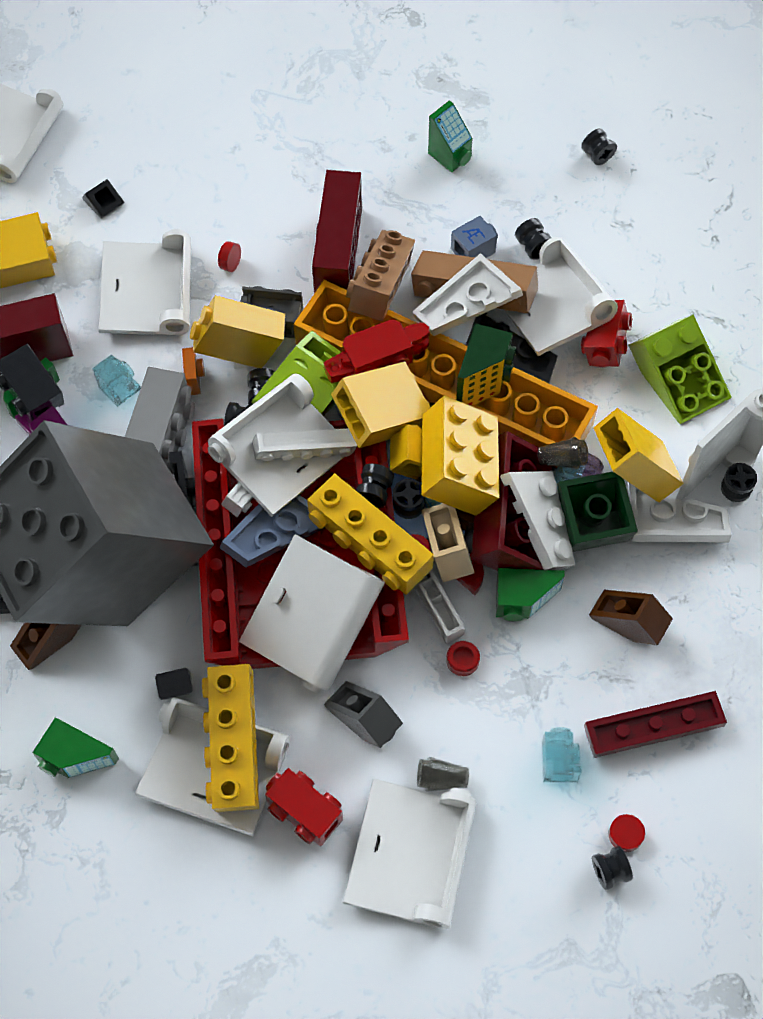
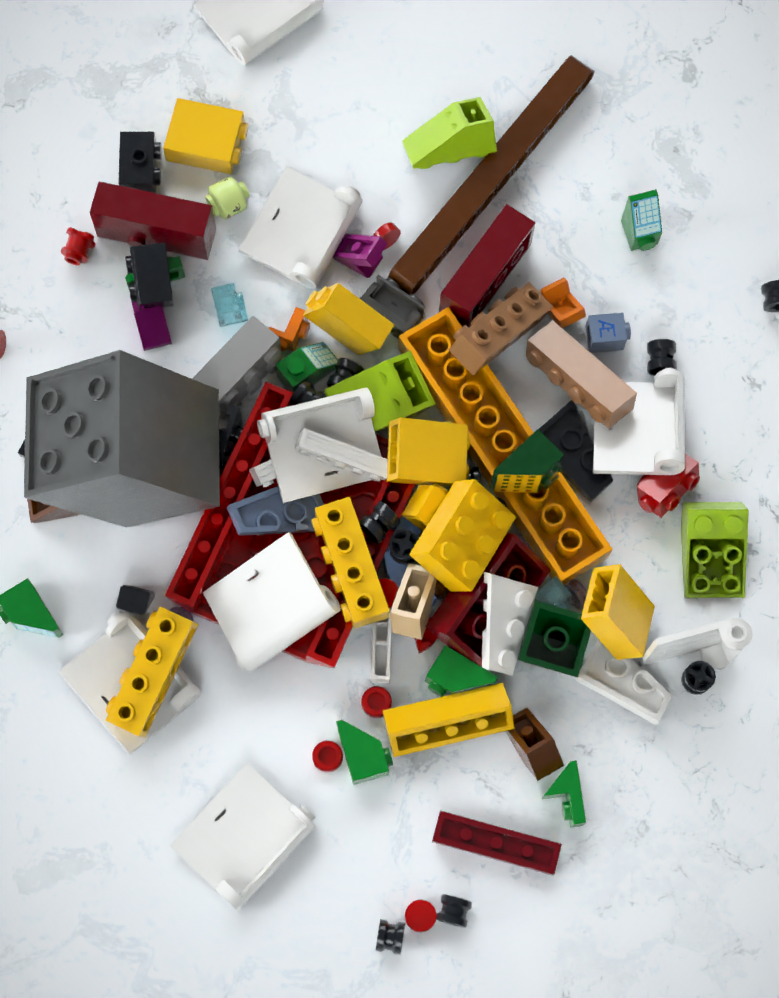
camera: 25 degrees right, 10 degrees up
(67, 289) = (227, 198): none -> yellowish green head
(103, 198) = (309, 121): black slope -> none
(214, 279) = (360, 253): none -> magenta slope
(217, 394) = (306, 364): none -> green slope
(242, 145) = (453, 134): none -> lime slope
(293, 168) = (490, 175): none -> reddish brown beam
(295, 799) = (175, 745): red brick -> none
(364, 713) = (269, 705): dark grey slope -> none
(377, 348) = (451, 401): red hinge -> none
(426, 237) = (566, 307): none -> orange bracket
(441, 775) = (301, 788): clear smoke cone -> none
(446, 732) = (327, 756): none -> red tile
(467, 295) = (557, 390): white wing -> none
(479, 709) = (363, 754): none -> green slope
(541, 634) = (448, 719): none -> yellow brick
(560, 755) = (404, 826): clear light blue brick -> none
(565, 454) = (555, 579): clear smoke cone -> none
(656, 808) = (454, 911): none -> black wheel
(689, 636) = (569, 786): none -> green slope

